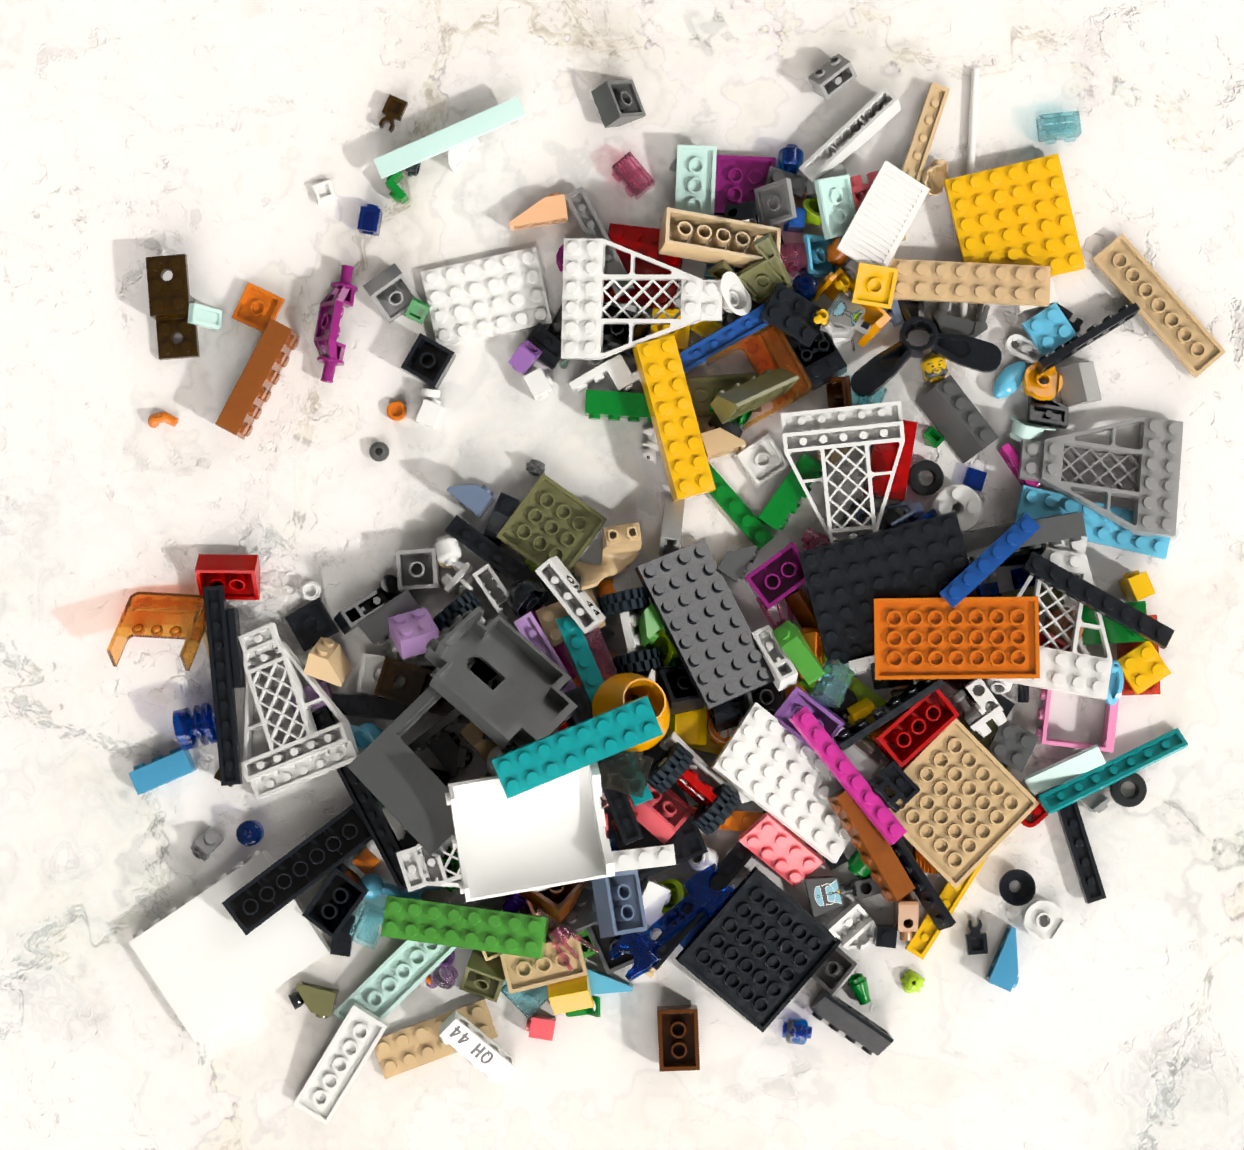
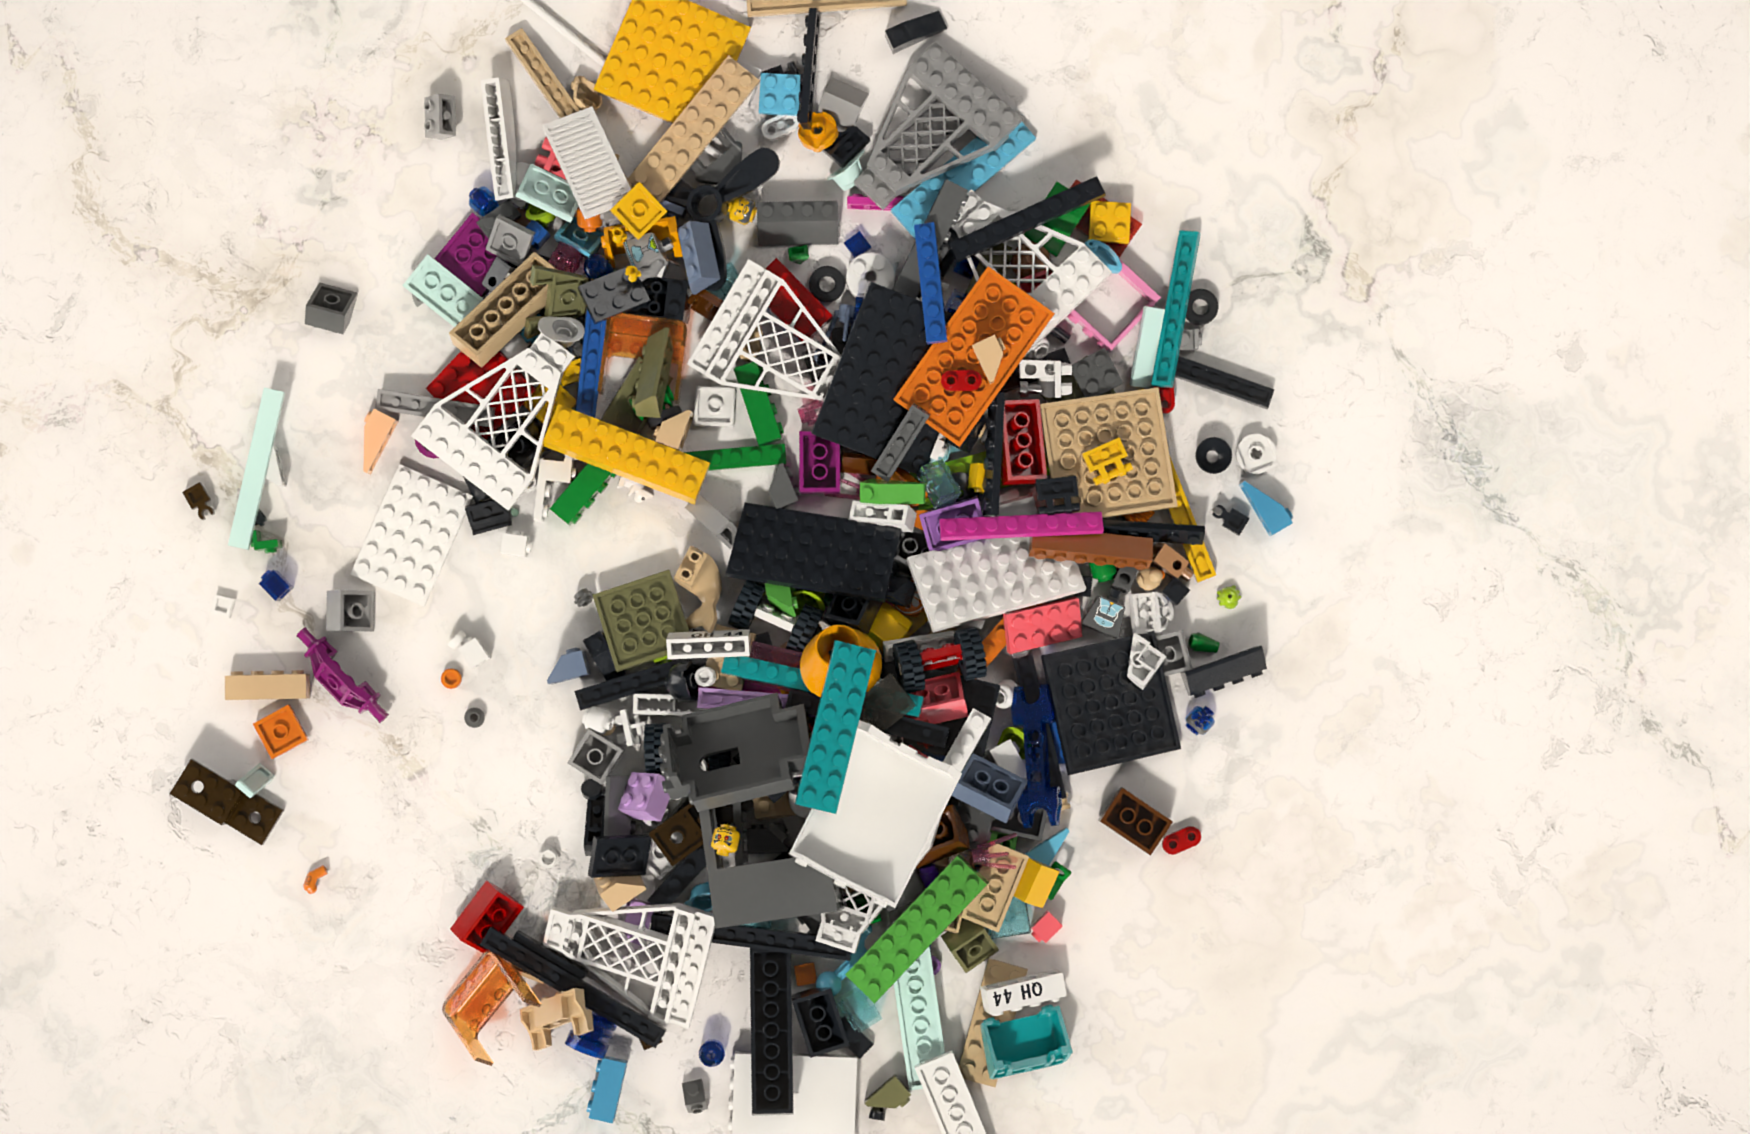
camera: 60 degrees left, 0 degrees up
(191, 685) = (555, 1012): none -> tan bracket
(257, 379) = (340, 774): dark orange brick -> none
(285, 272) = (271, 686): none -> tan brick
(311, 623) = (573, 878): black tile -> none
(351, 646) = (619, 855): none -> black plate
(417, 310) = (380, 600): plate -> none
(423, 723) = (725, 839): none -> yellow head
(428, 361) = (430, 622): black brick -> none
(437, 1078) = (1025, 1043): none -> teal windscreen
(443, 977) = (946, 978): clear purple animal -> none
(525, 357) = (485, 539): medium lavender brick -> none
(543, 610) = (705, 676): none -> white tile
(605, 587) = (724, 612): orange wheel -> none
(632, 175) = (400, 340): clear pink brick -> none
(690, 1085) = (1181, 840): none -> red plate
(810, 952) = (1143, 661): none -> white slope
(844, 629) = (900, 442): none -> dark grey plate
(874, 359) = (698, 255): none -> sand blue slope
(881, 908) = (1150, 578): none -> tan animal
(928, 643) = (961, 380): none -> red plate
(952, 800) = (1104, 455): none -> yellow plate
(967, 651) = (989, 355): none -> tan slope
(1009, 380) = (797, 157): medium azure arm -> none
(1136, 586) = (1039, 178): yellow brick -> none
(1178, 399) = (914, 31): none -> black slope

